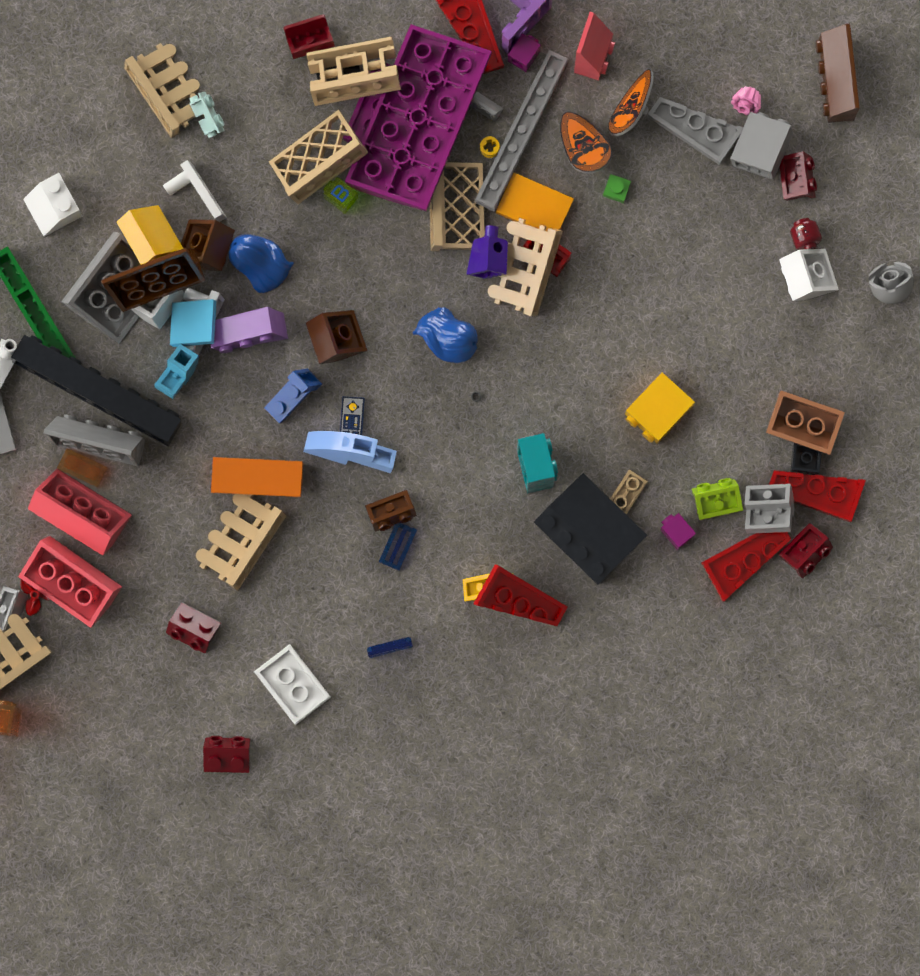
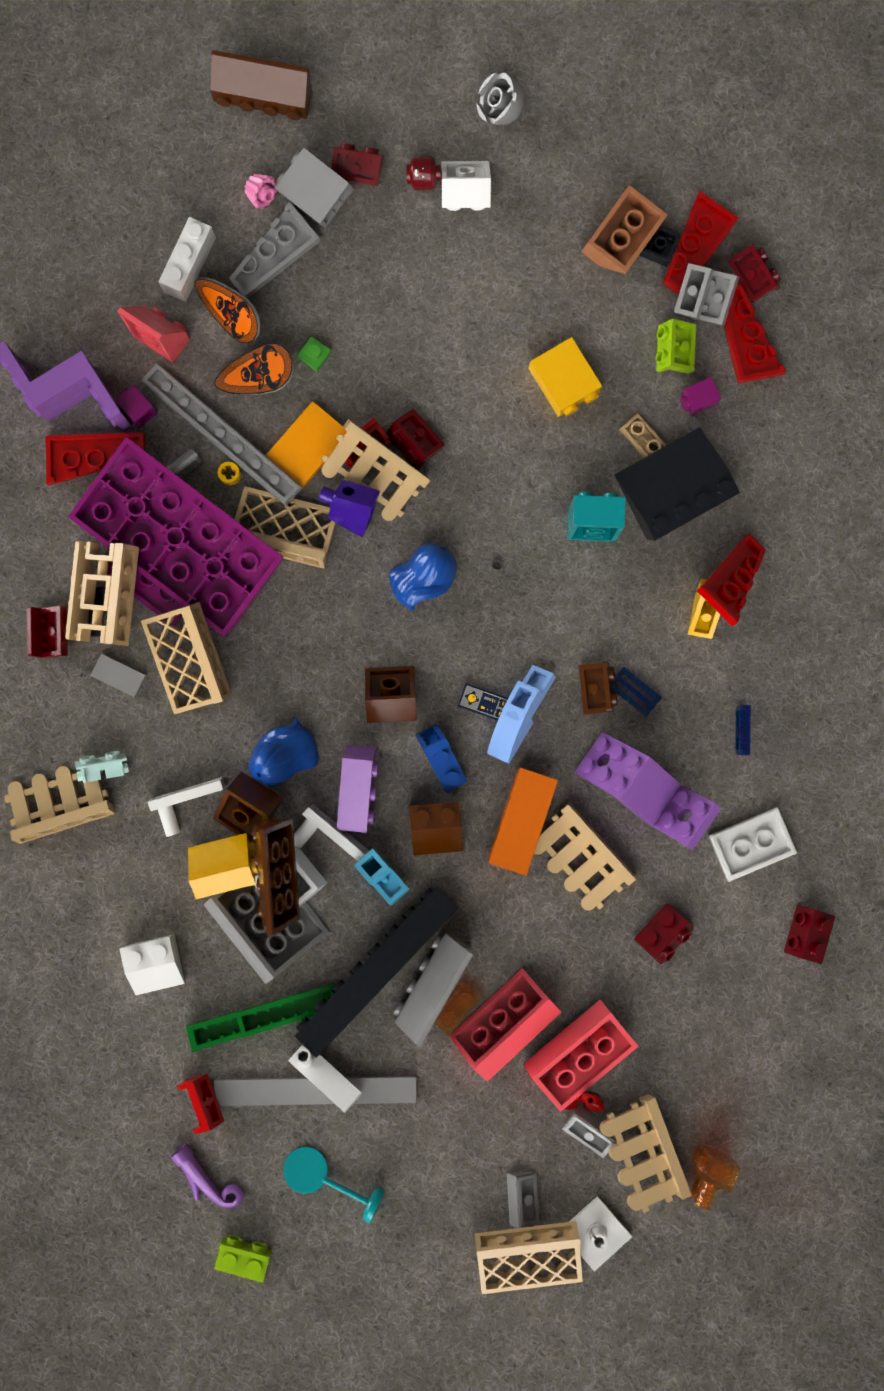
camera: 80 degrees left, 5 degrees up
(193, 323) = (334, 844): medium azure tile -> none
(231, 406) = (436, 828): none -> reddish brown slope
(288, 106) = (118, 675): none -> light grey tile
(312, 573) = (647, 790): none -> medium lavender bracket
(340, 195) = (235, 647): clear neon green brick -> none
(566, 294) = (414, 438): none -> dark red bracket
(666, 57) = (187, 259): none -> white brick

